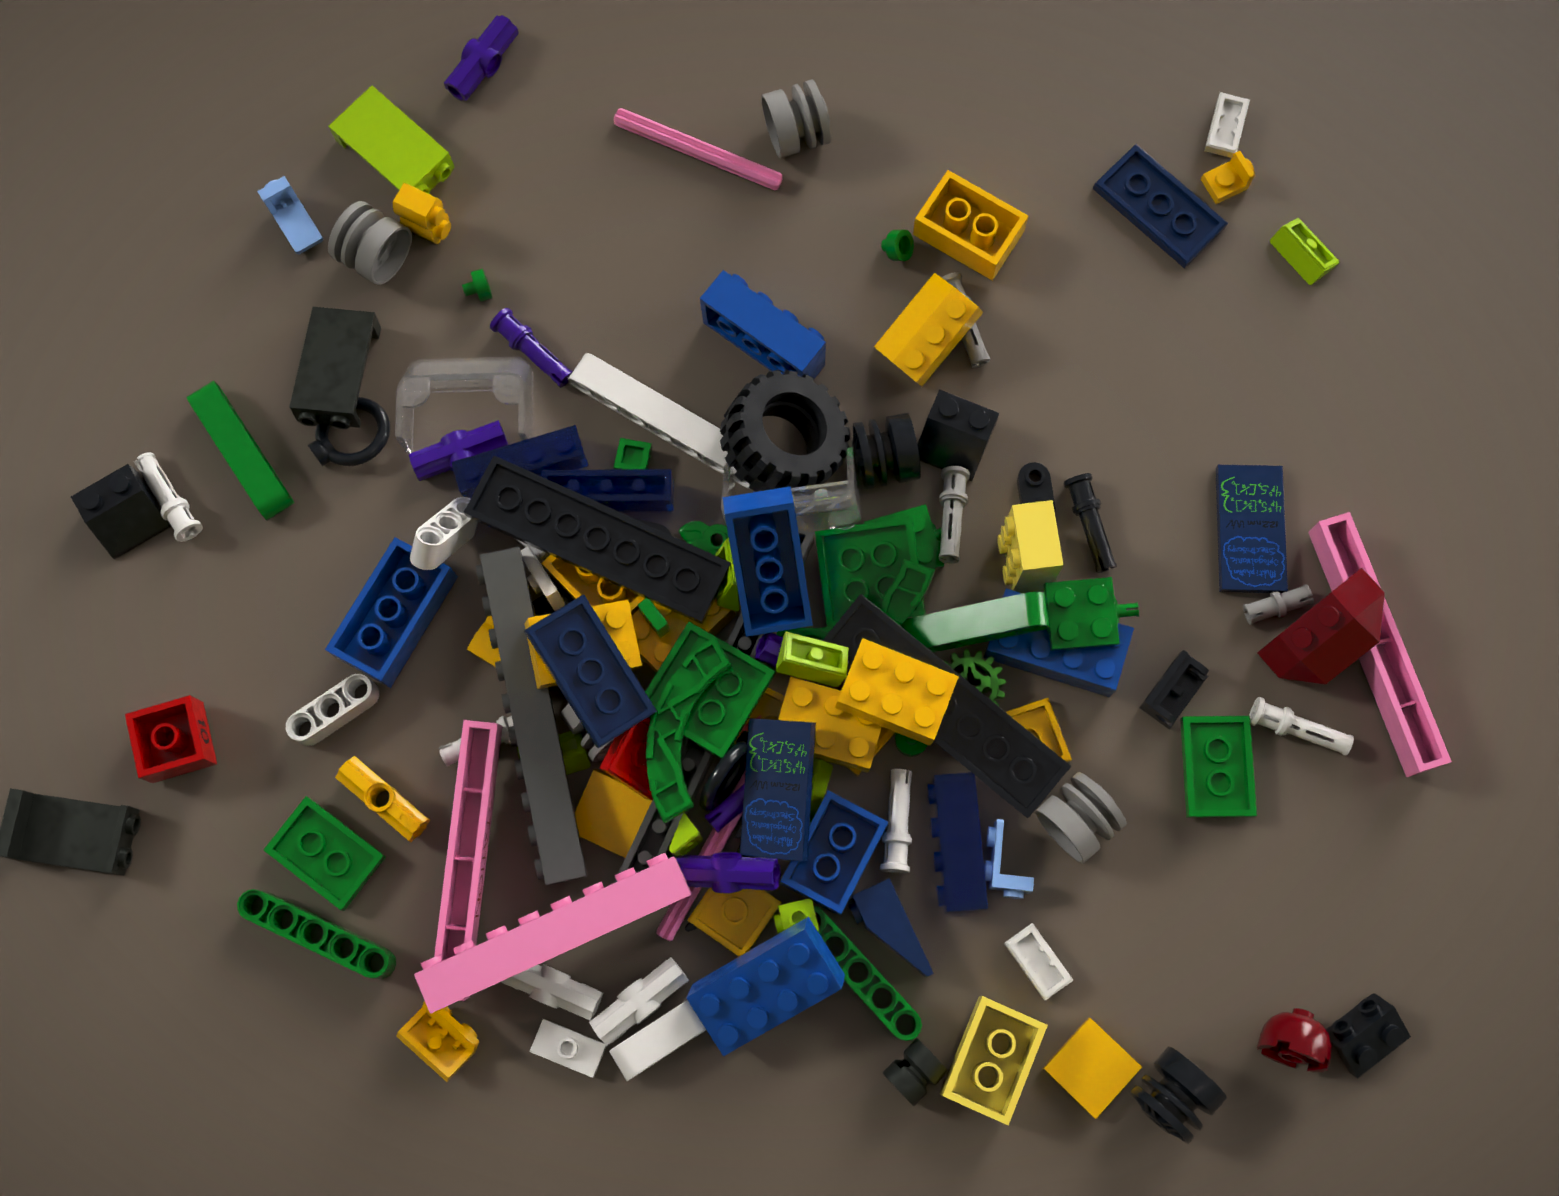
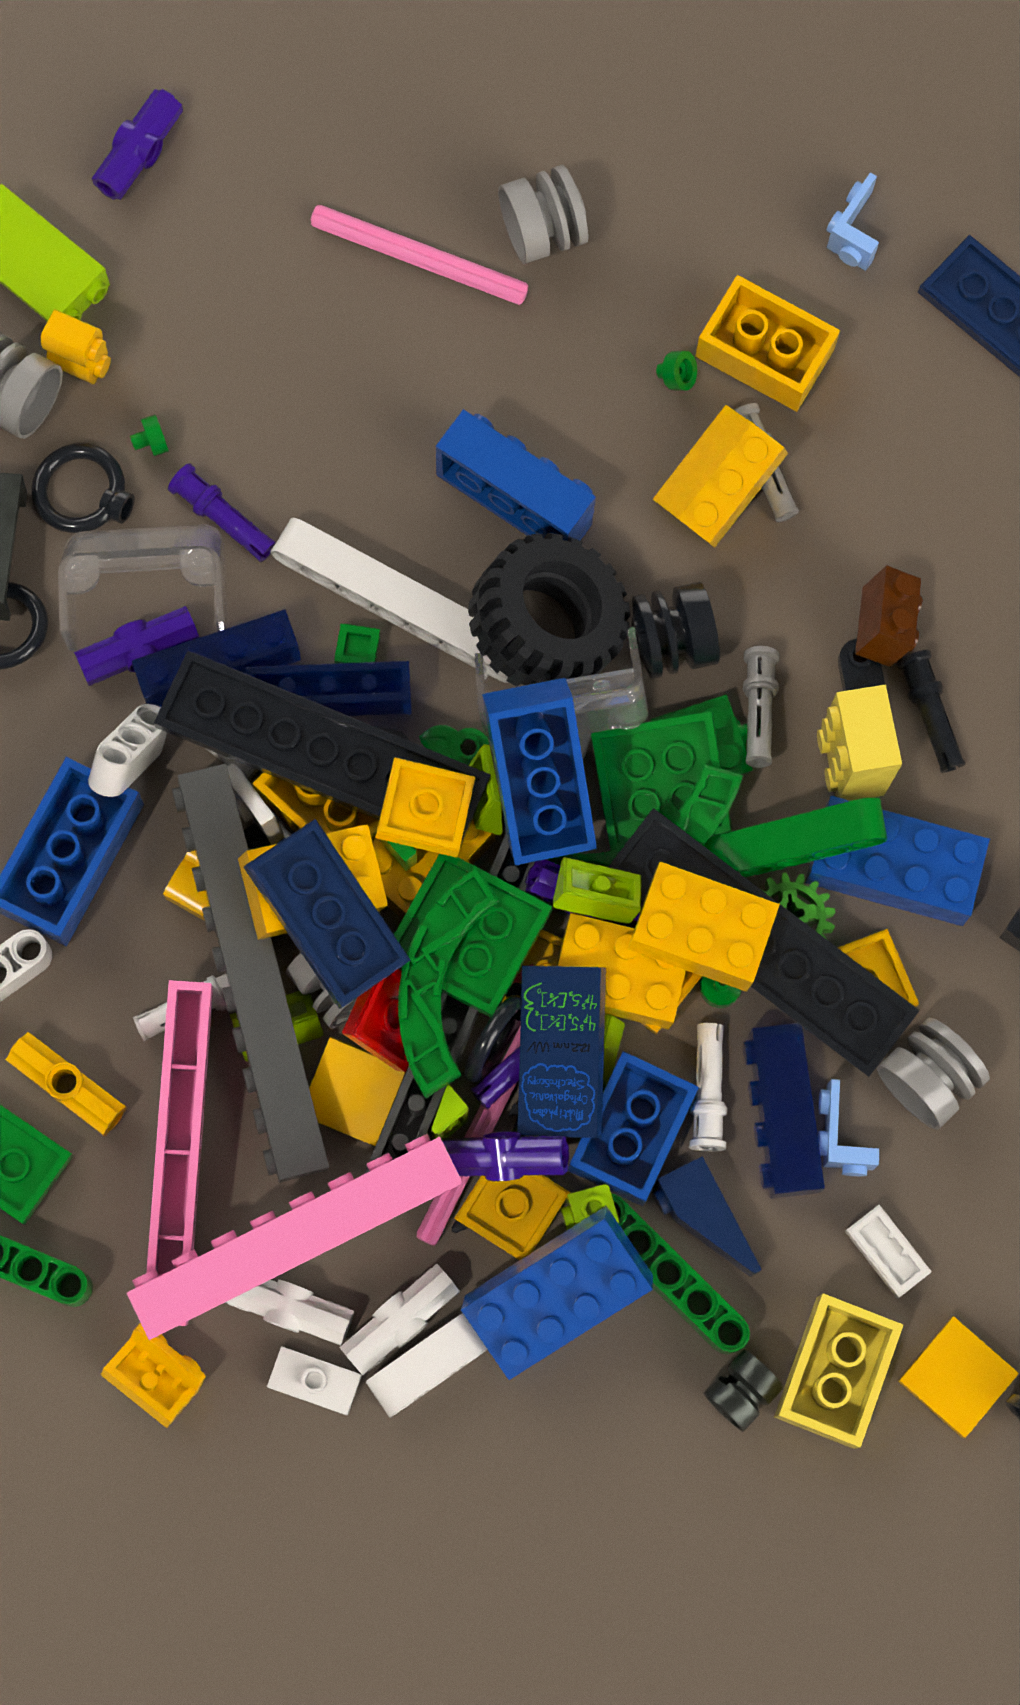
camera: 10 degrees left, 0 degrees up
(446, 338) = (114, 503): none -> black piece
(675, 587) = (425, 807): none -> yellow tile
(956, 433) = (761, 604): black slope -> none
(1037, 146) = (846, 241): none -> light blue bracket
(1059, 445) = (889, 616): none -> reddish brown brick
(1084, 613) = (929, 823): green plate -> none

